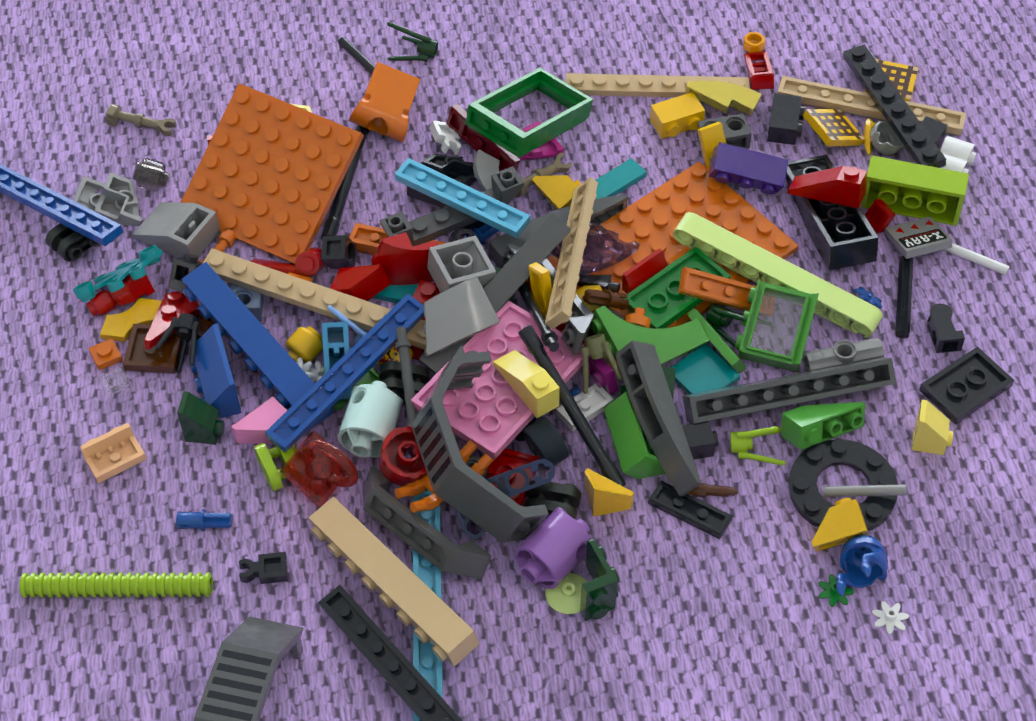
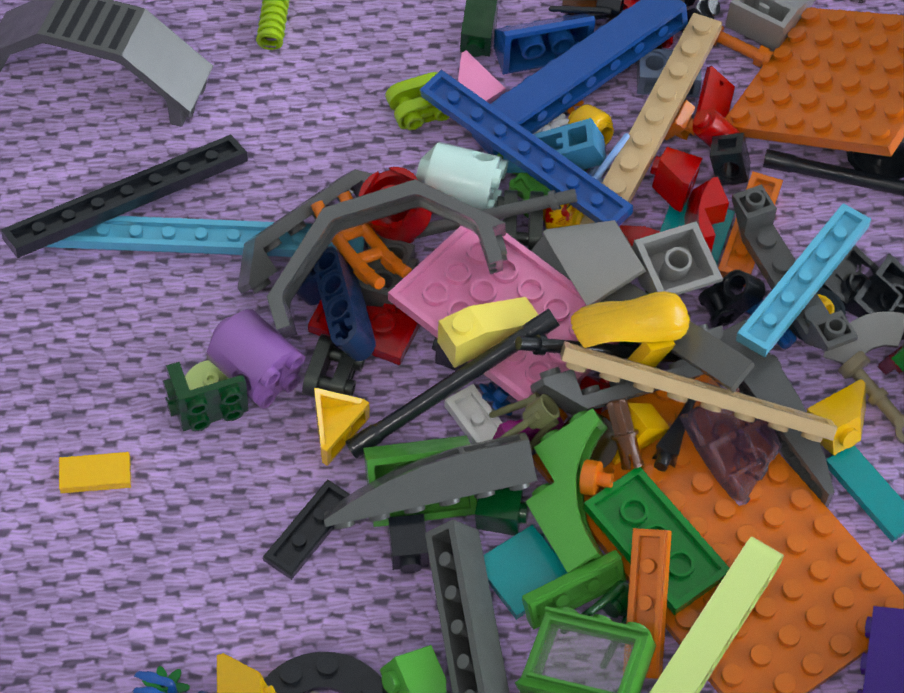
camera: 90 degrees right, 5 degrees up
(203, 520) = (355, 37): blue axle -> none
(269, 568) = (283, 91): black plate -> none
(319, 469) = (401, 131): clear red tile -> none
(394, 581) = (235, 195): tan brick -> none
(524, 286) = (644, 319): none -> yellow hair
(545, 441) = (415, 363): black wheel -> none
(643, 271) = (687, 499): red slope -> none
(663, 664) = (94, 472): none -> yellow tile
(713, 490) = (338, 547): reddish brown piece -> none
(742, 442) = (403, 604): lime plant -> none

